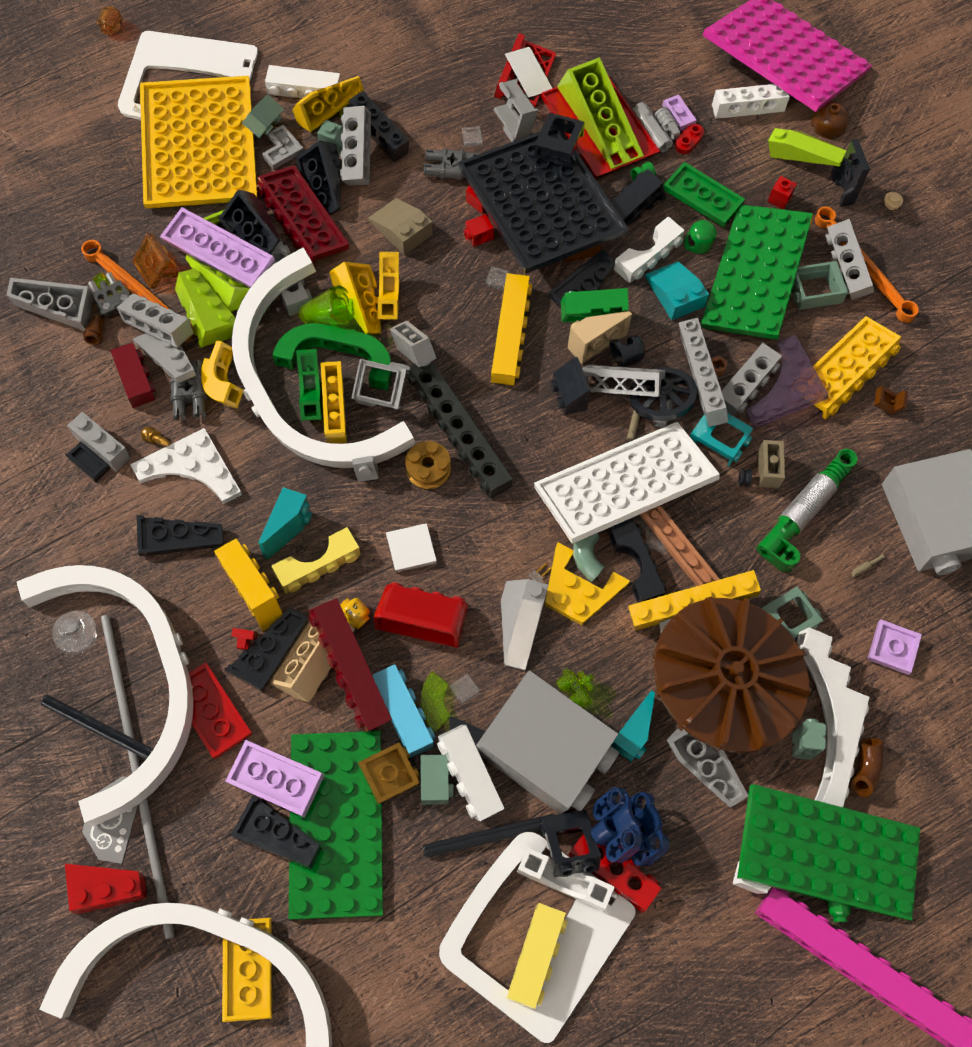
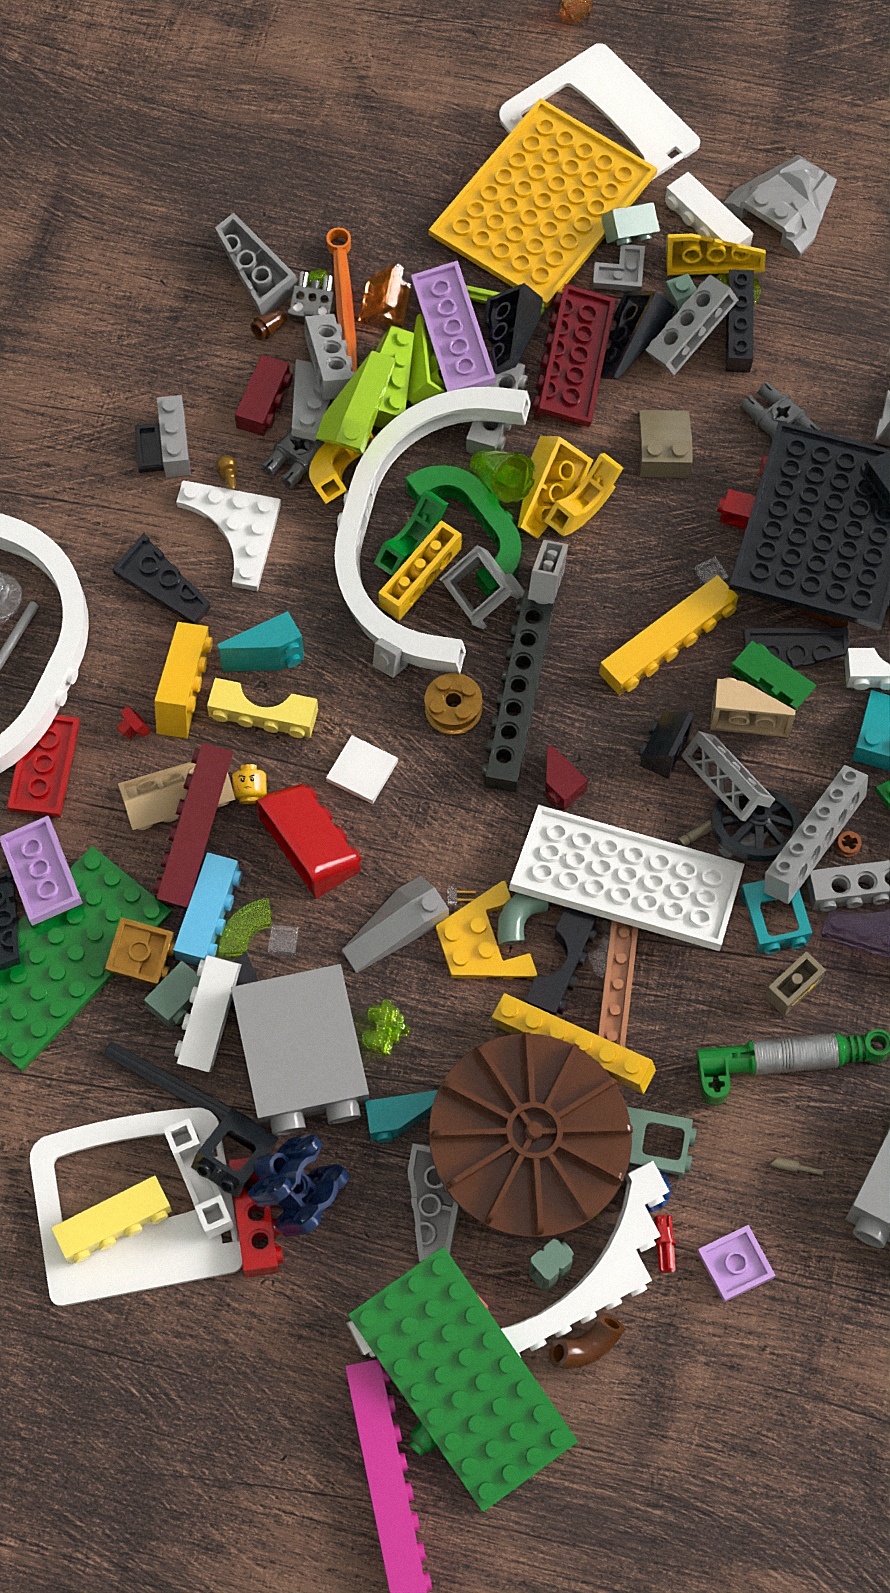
camera: 45 degrees right, 0 degrees up
(206, 334) = (354, 410): none -> lime wedge
(265, 656) = (140, 756): black wing -> none
(337, 41) = (788, 199): none -> light grey wedge
(472, 136) = (834, 403): clear tile -> none
(531, 457) = (562, 780): none -> dark red slope
(629, 354) = (766, 758): black helmet -> none
(744, 477) = (757, 975): black bush -> none
(856, 677) = (665, 1243): none -> red axle

